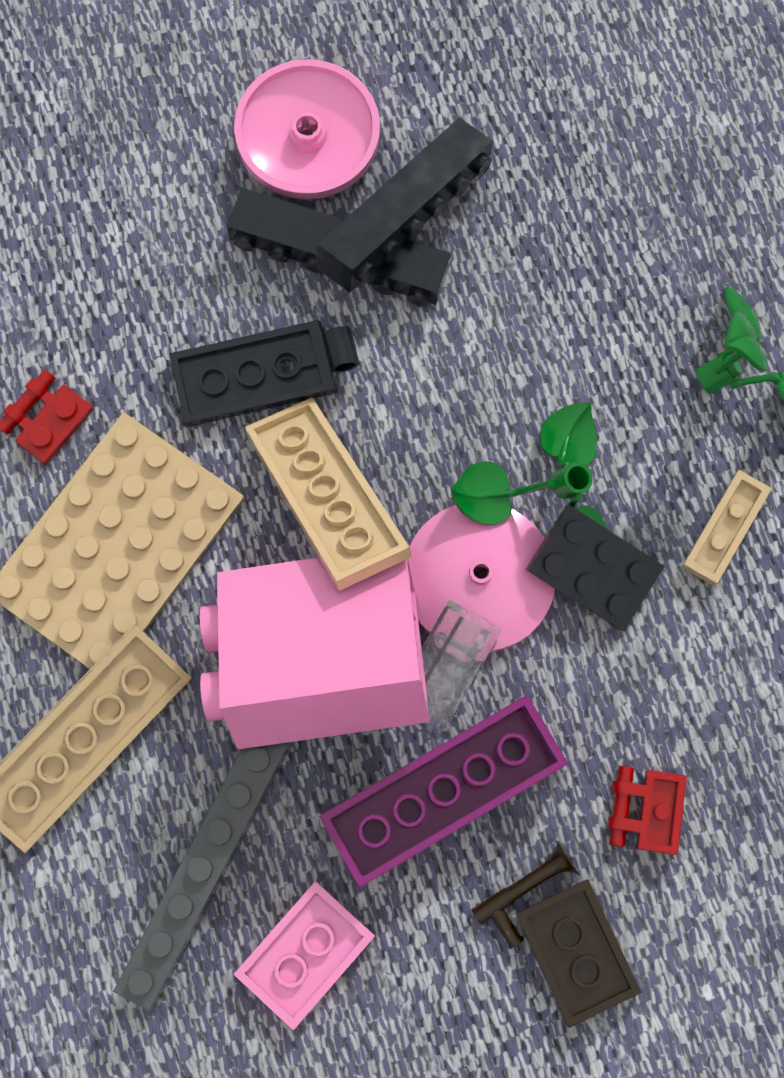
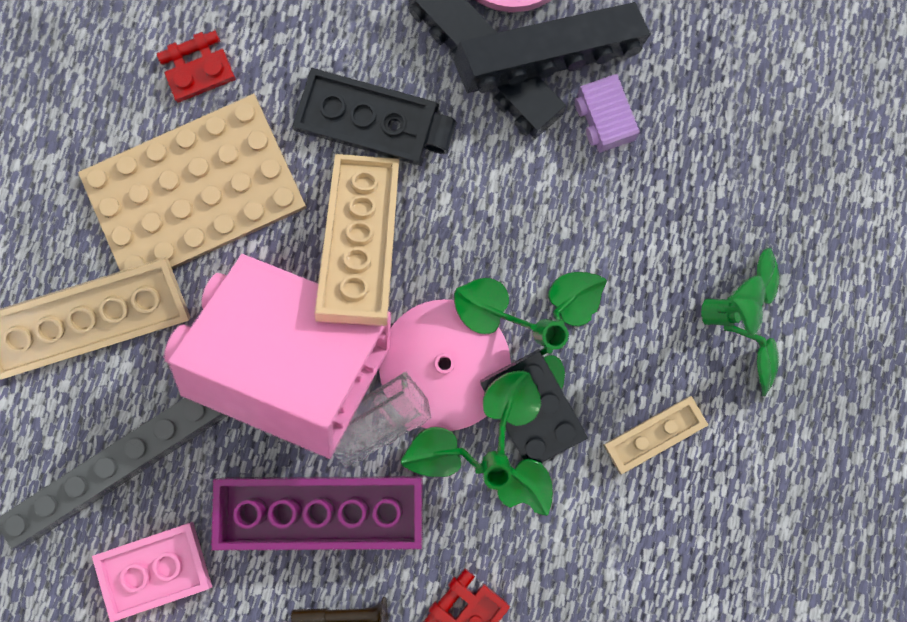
camera: 35 degrees right, 5 degrees up
(494, 241) = (606, 113): none -> lavender brick
(568, 568) = (512, 400): none -> green plant

